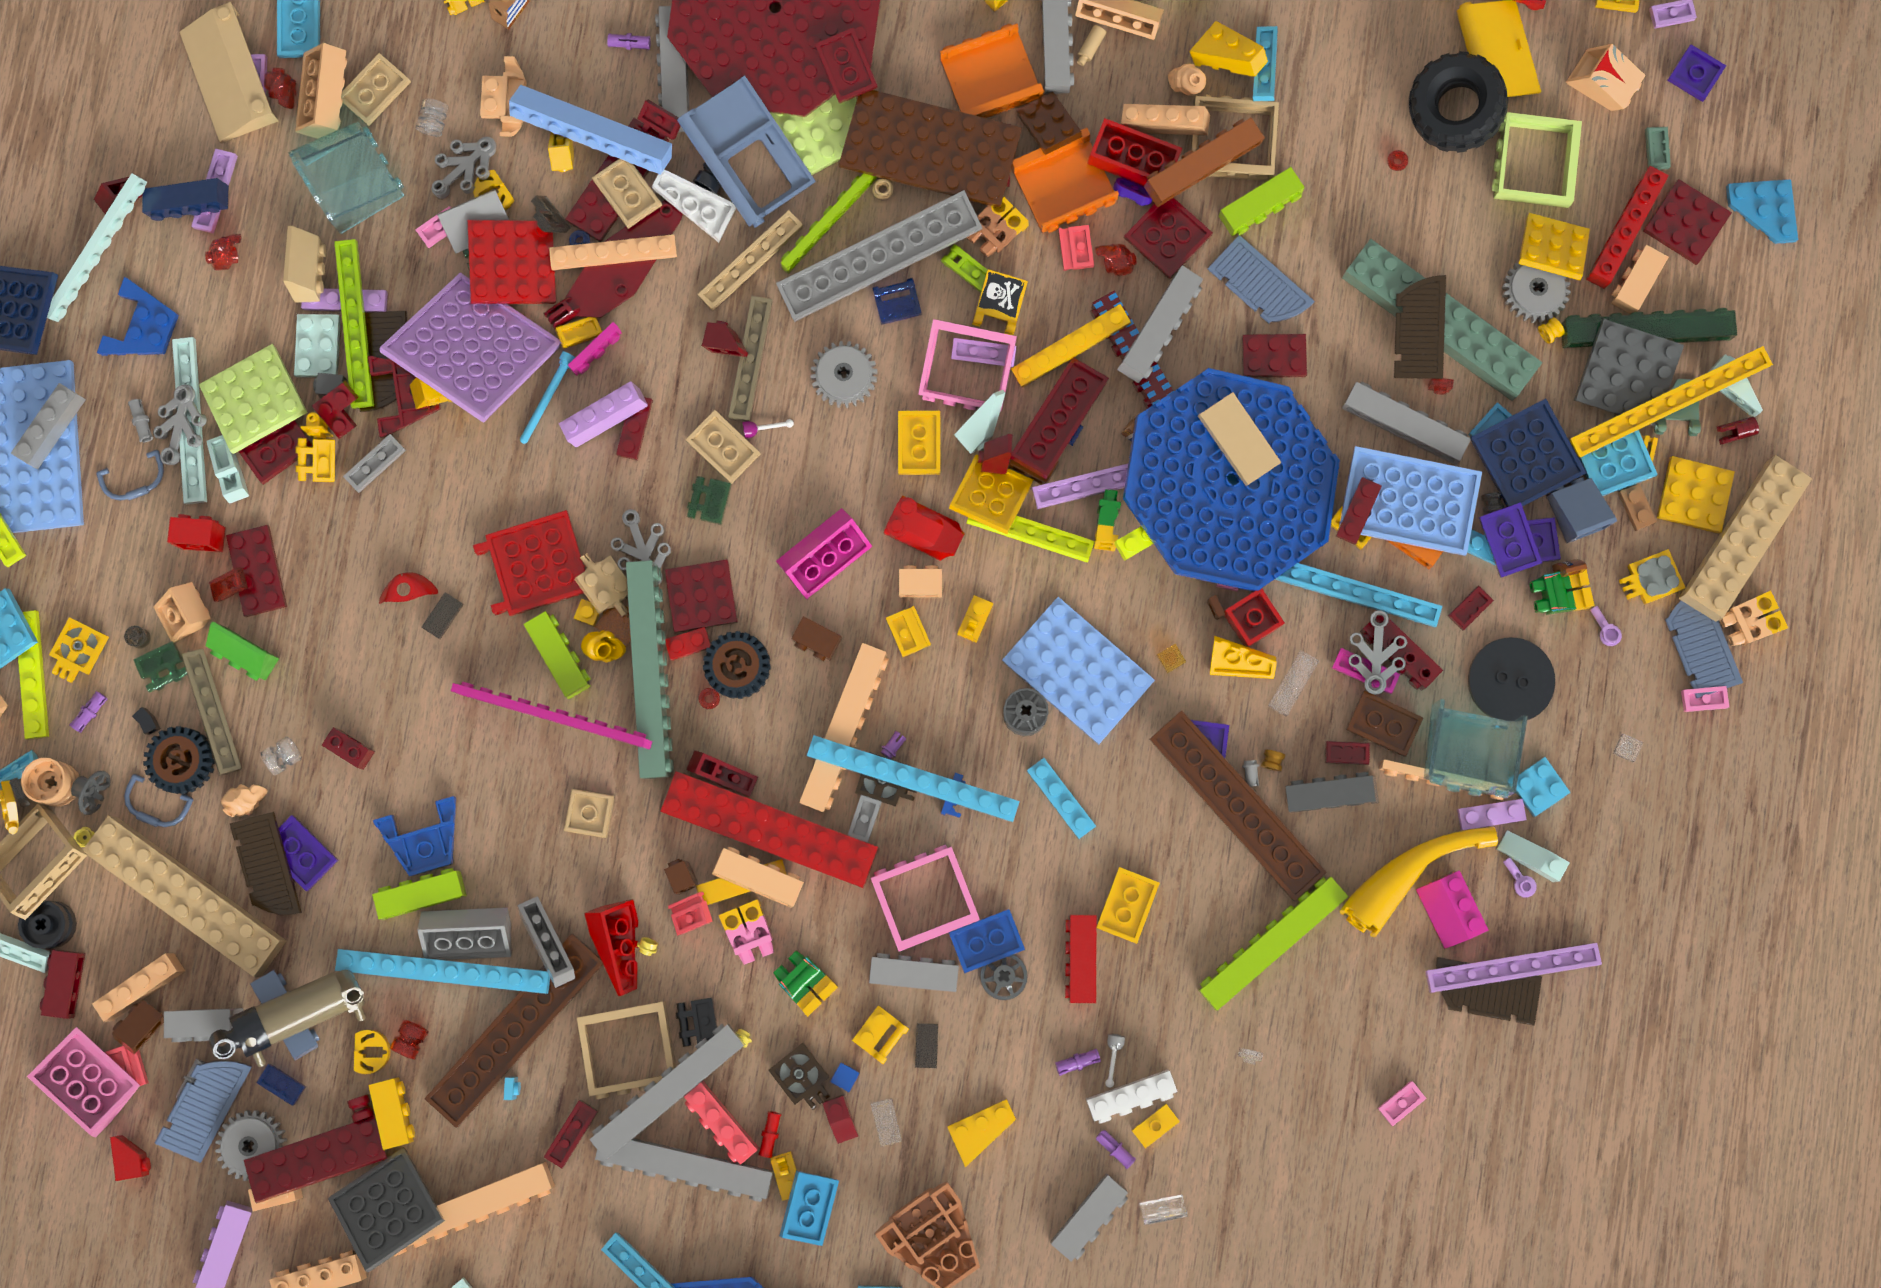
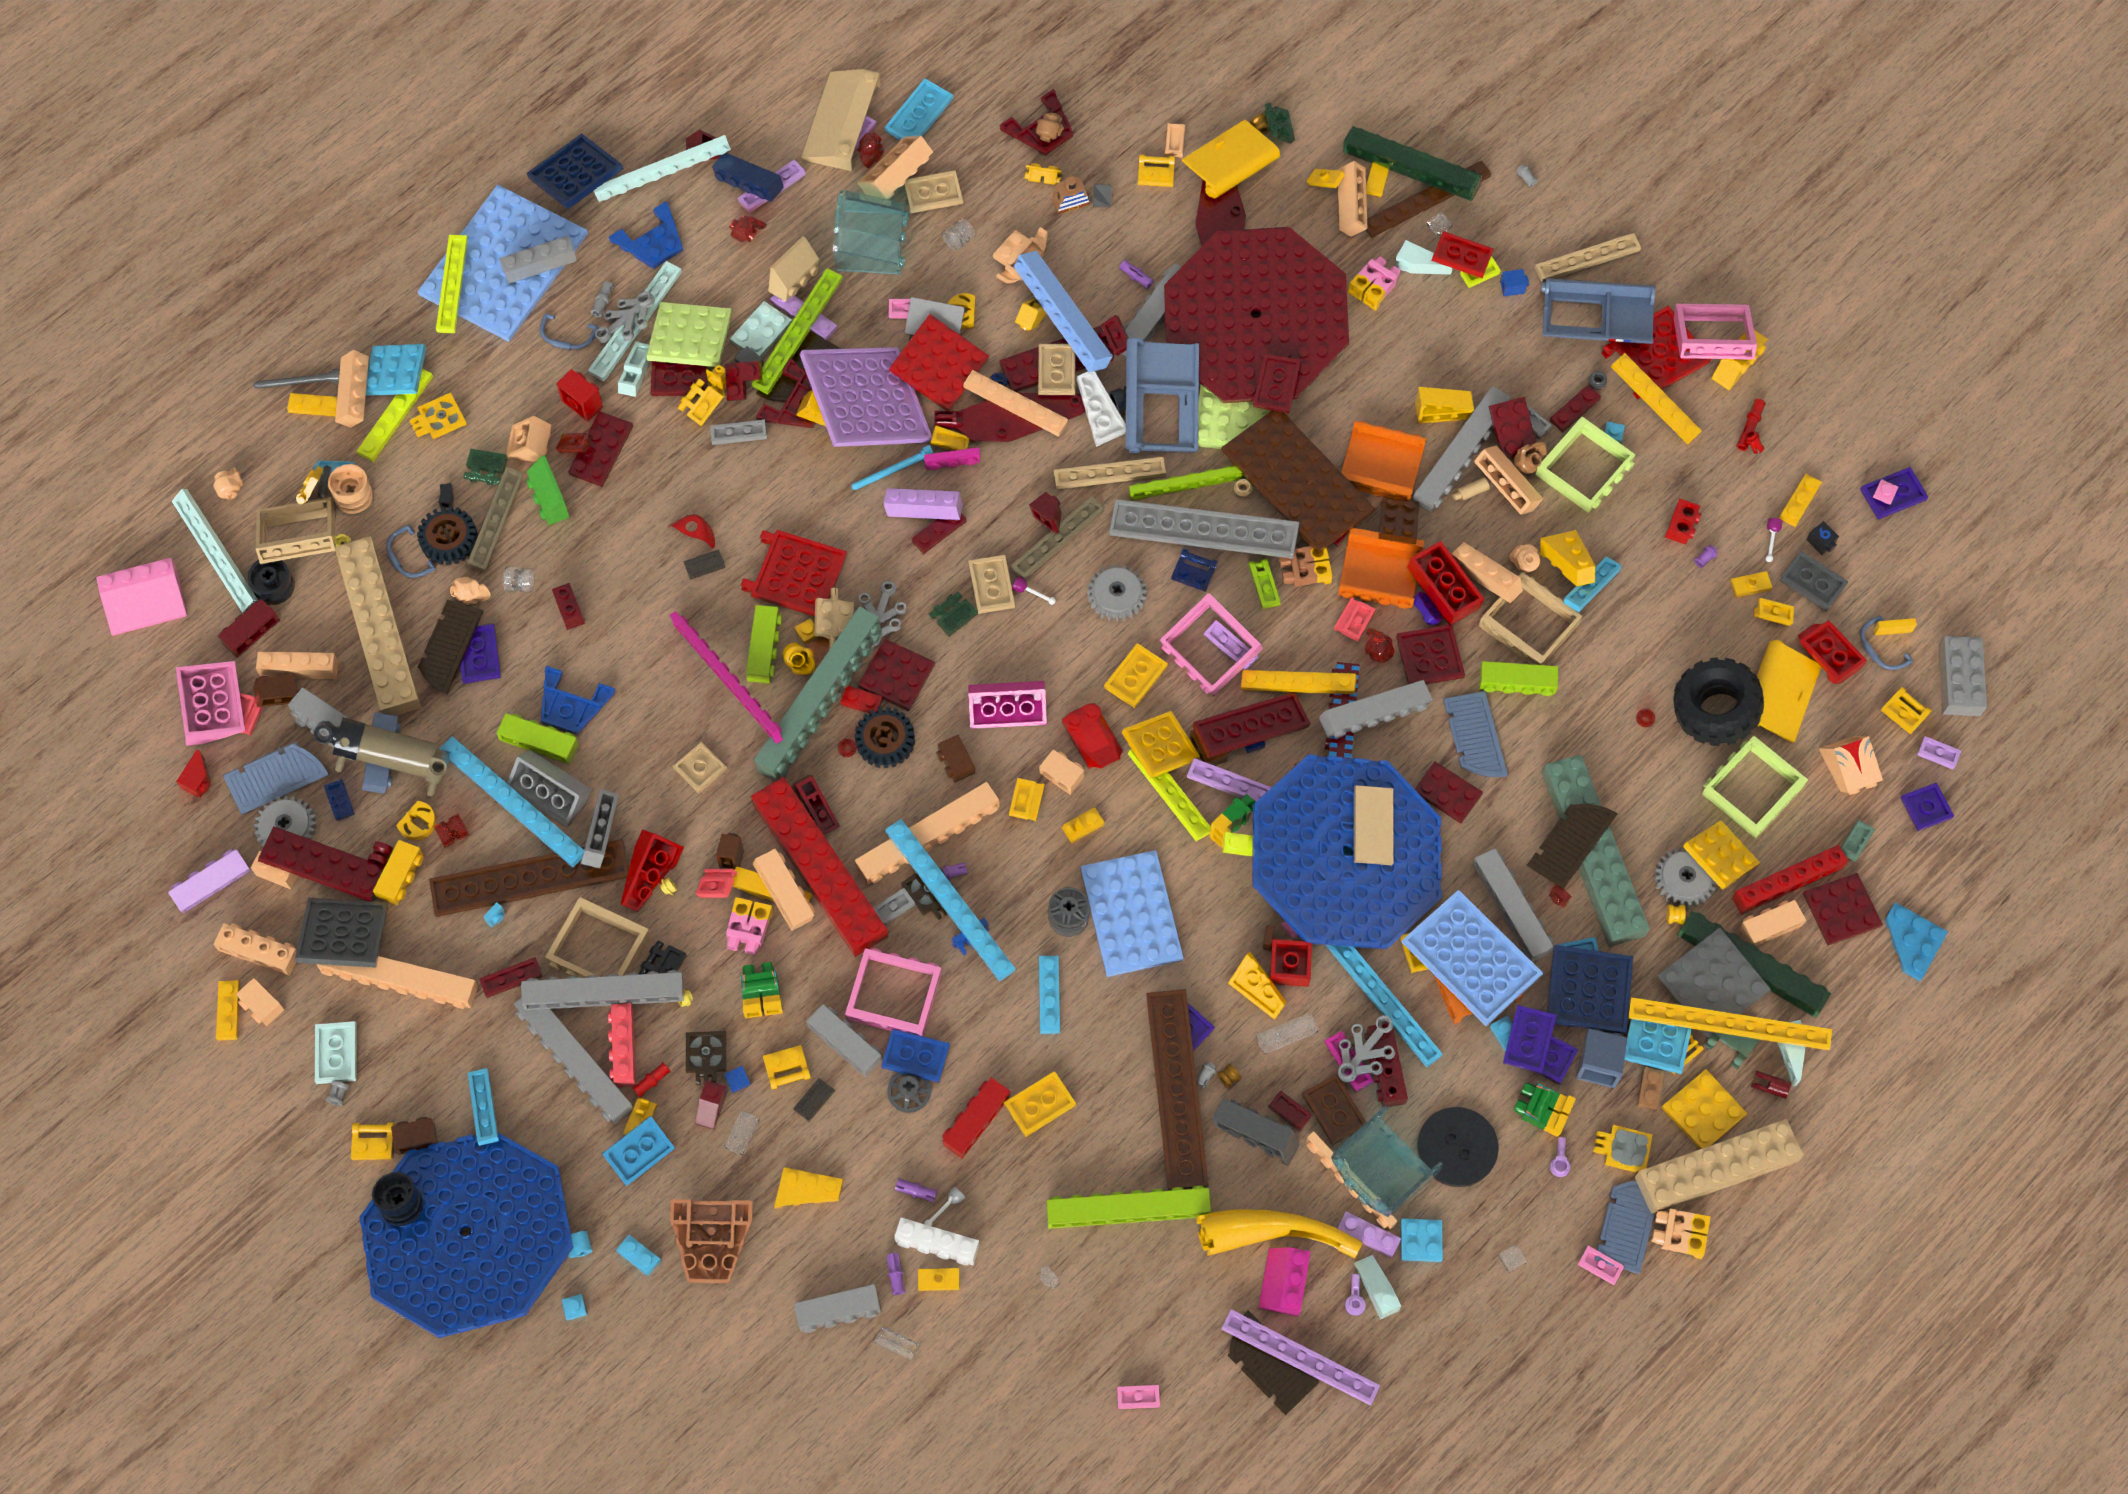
camera: 30 degrees right, 15 degrees down
(88, 711) = (412, 462): medium lavender pin -> none
(88, 789) = (370, 512): dark grey wheel -> none
(134, 633) = (483, 432): clear smoke wheel -> none
(464, 164) = (976, 278): light grey plant -> none
(548, 216) = (988, 350): clear smoke plate -> none
(981, 424) = (1190, 690): light aqua slope -> none
(996, 455) = (1183, 717): dark red slope -> none
(1000, 299) = (1271, 617): flag -> none
(1171, 658) = (1207, 951): clear yellow plate -> none
(1204, 161) = (1492, 617): dark orange brick -> none
(1358, 511) = (1425, 935): dark red plate -> none
(1470, 608) = (1464, 1071): dark red plate -> none
(1492, 502) = (1538, 1003): clear smoke wheel -> none
(1570, 567) = (1562, 1091): dark orange slope -> none

